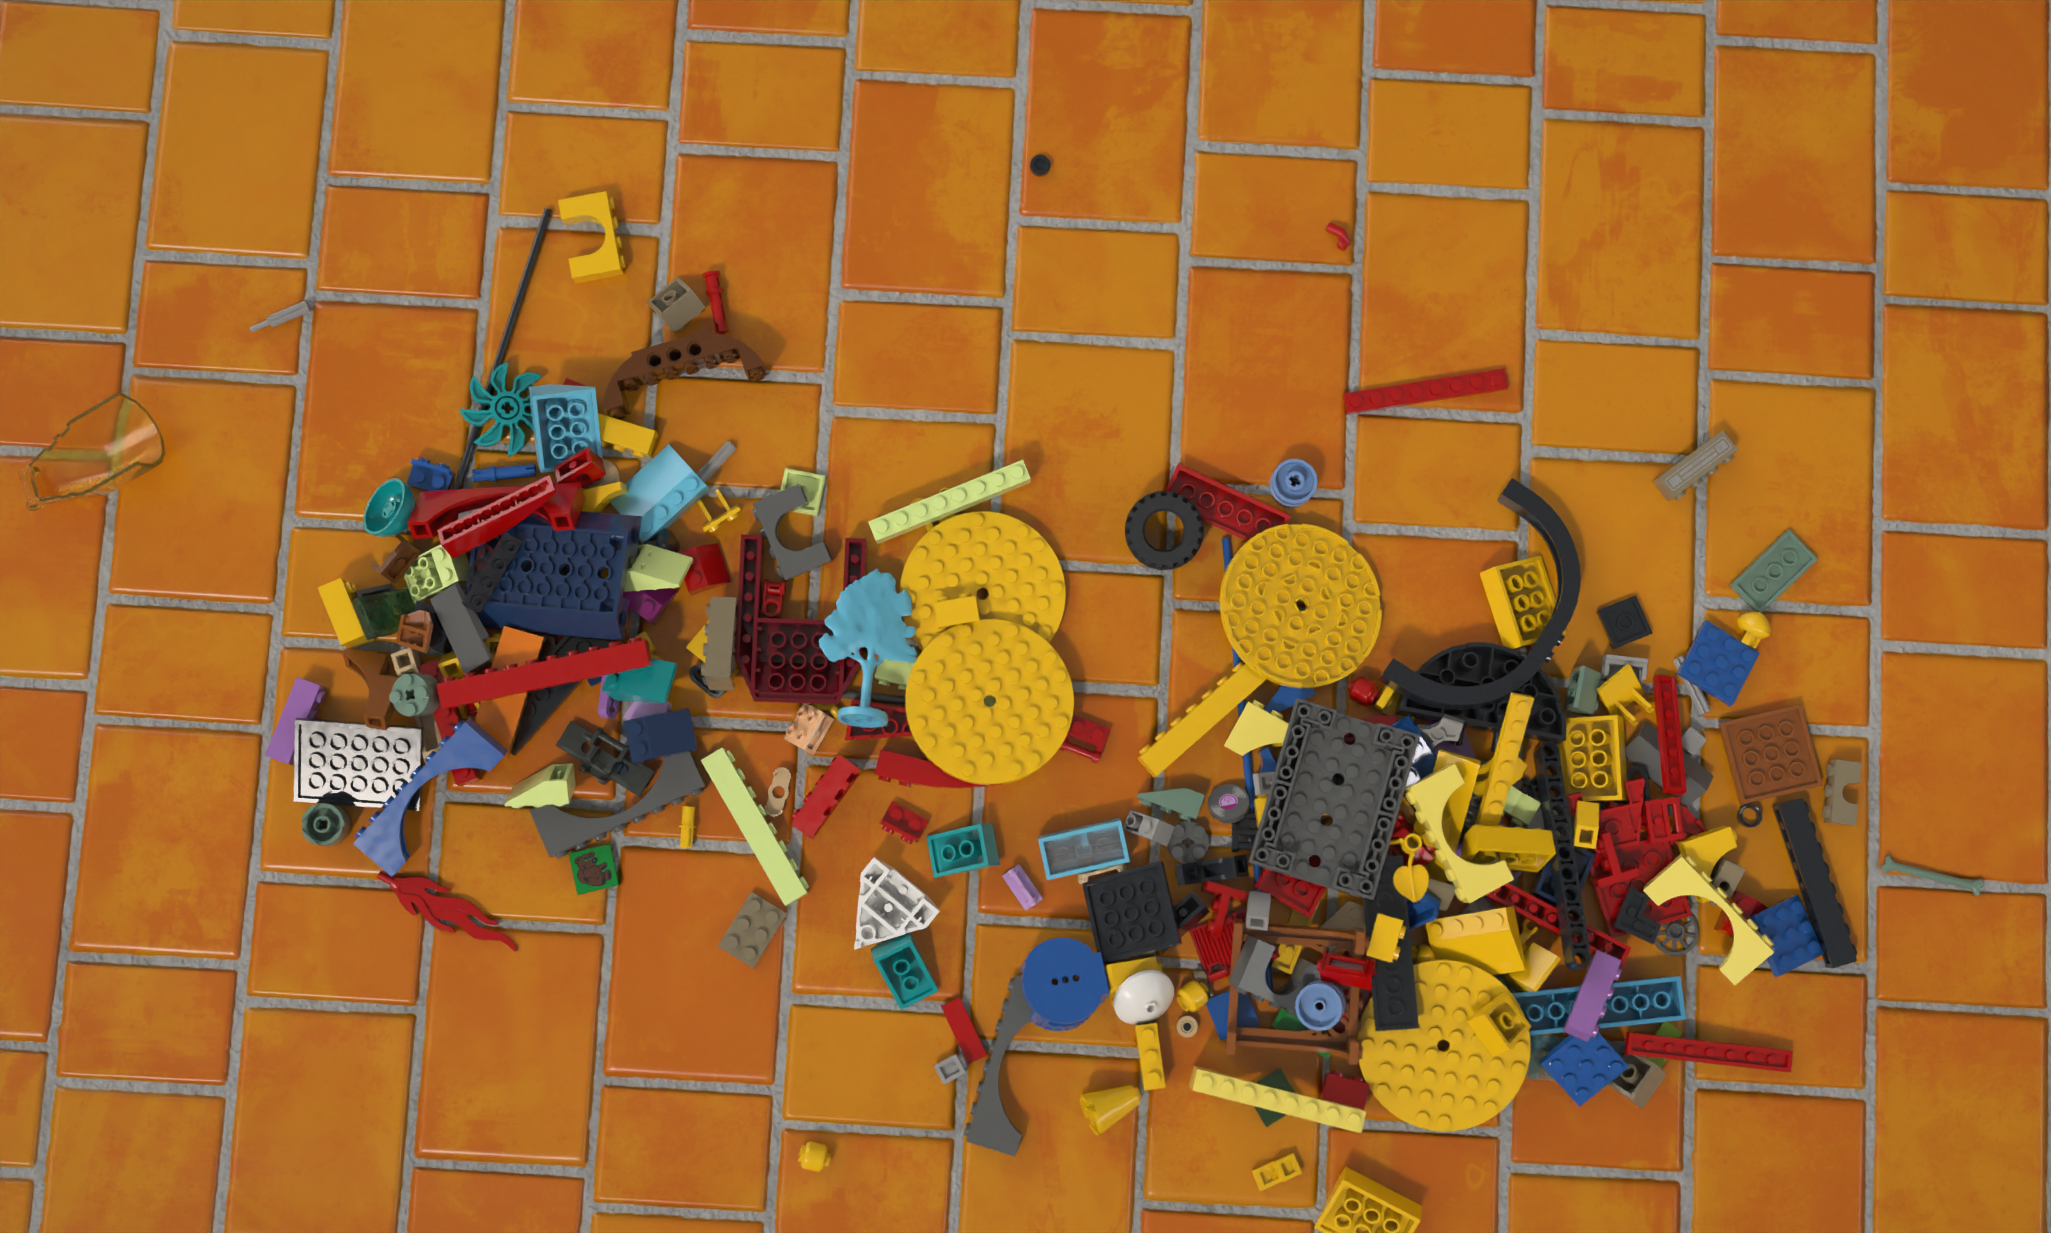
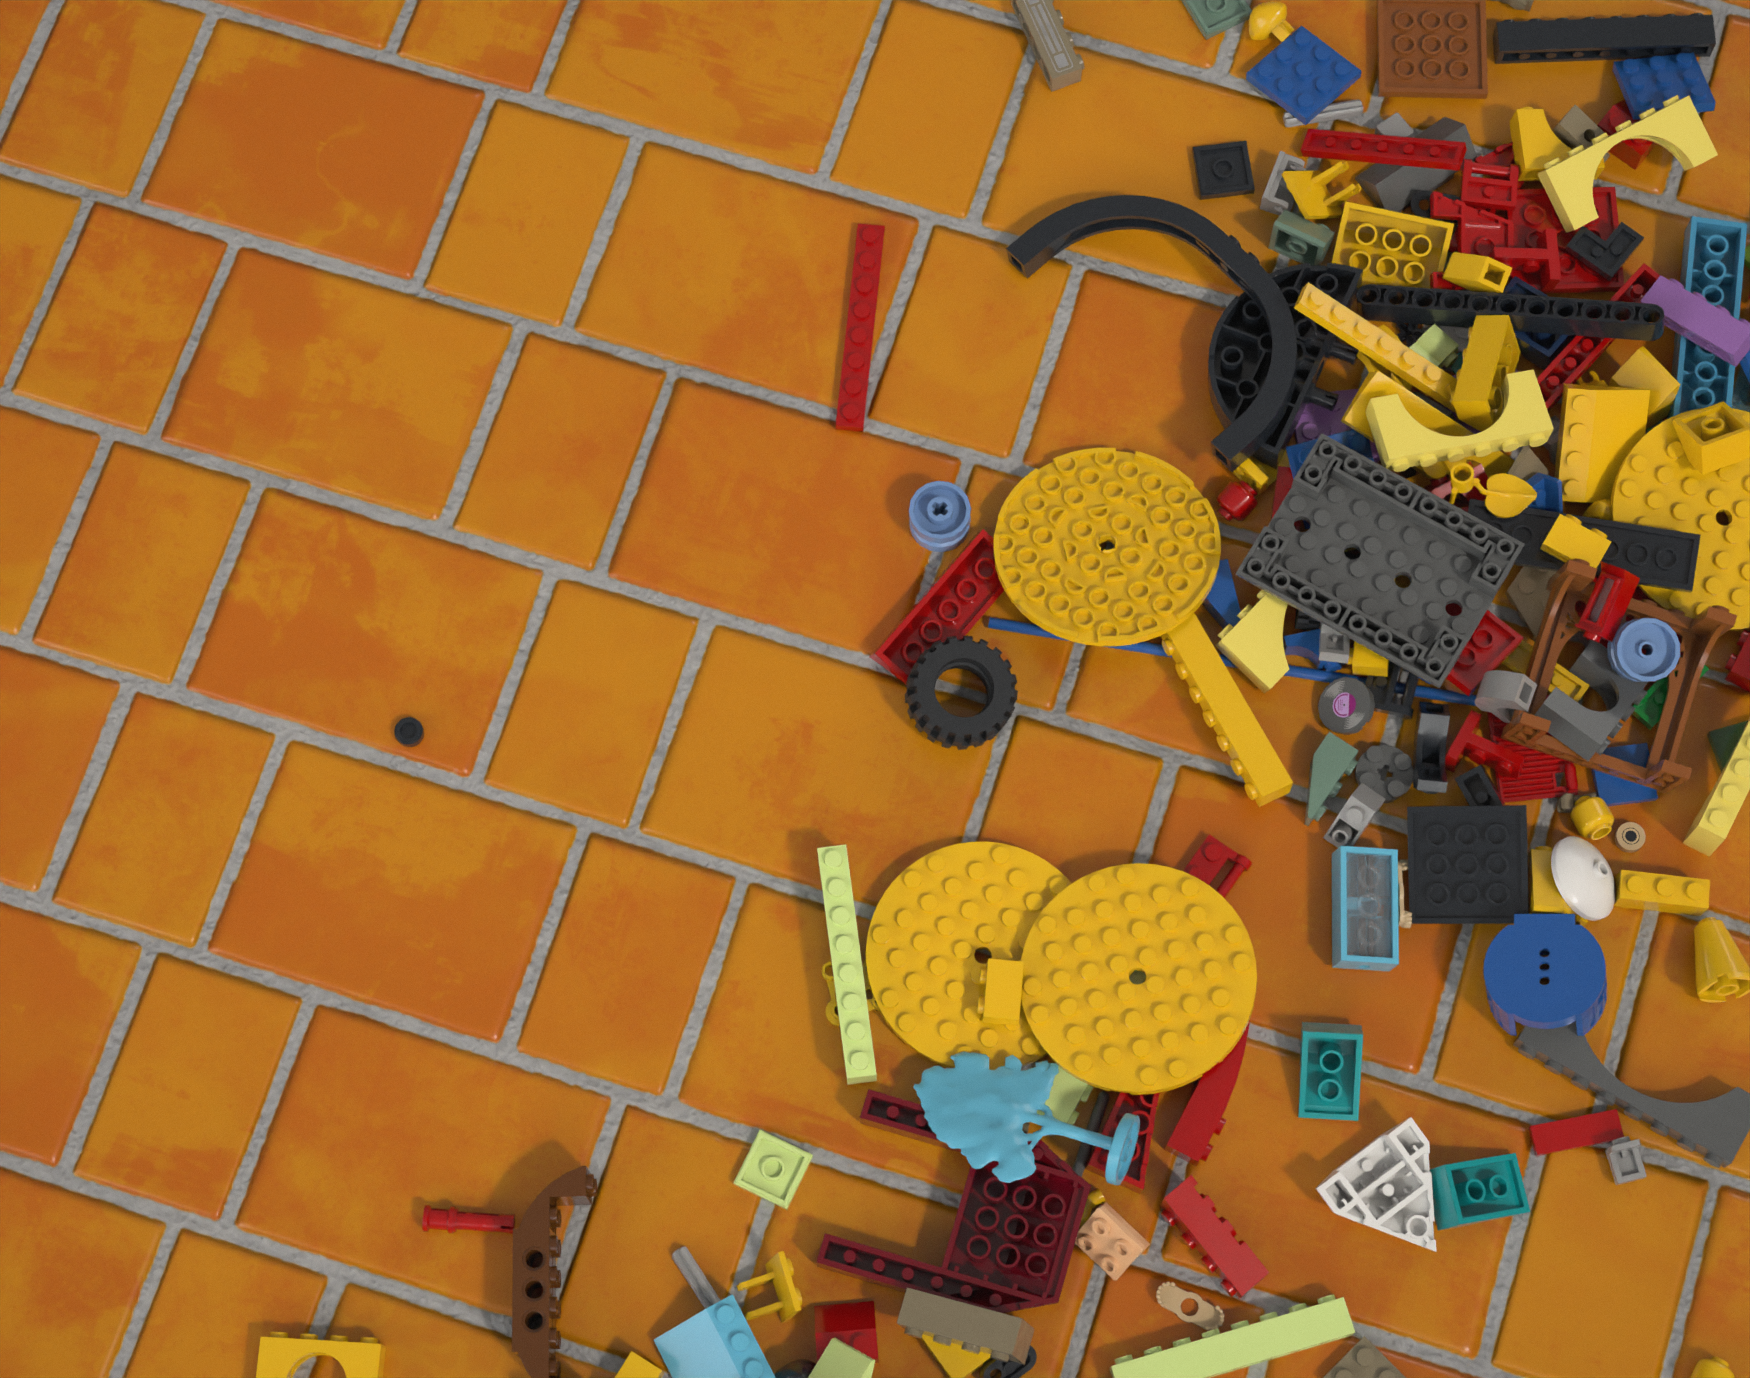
camera: 70 degrees left, 10 degrees down
(676, 305) = (455, 1278): dark tan slope -> none
(770, 513) = (794, 1216): dark grey arch -> none
(773, 594) = (913, 1243): red piece -> none
(903, 822) = (1272, 1142): red bracket -> none
(1022, 887) = (1397, 1004): lavender hinge -> none
(1341, 234) = (621, 374): red arm -> none
(1446, 729) = (1316, 408): light grey tile -> none
(1519, 600) = (1166, 283): yellow slope -> none
(1675, 932) = (1631, 212): dark grey wheel -> none
(1758, 816) = (1503, 80): black piece -> none

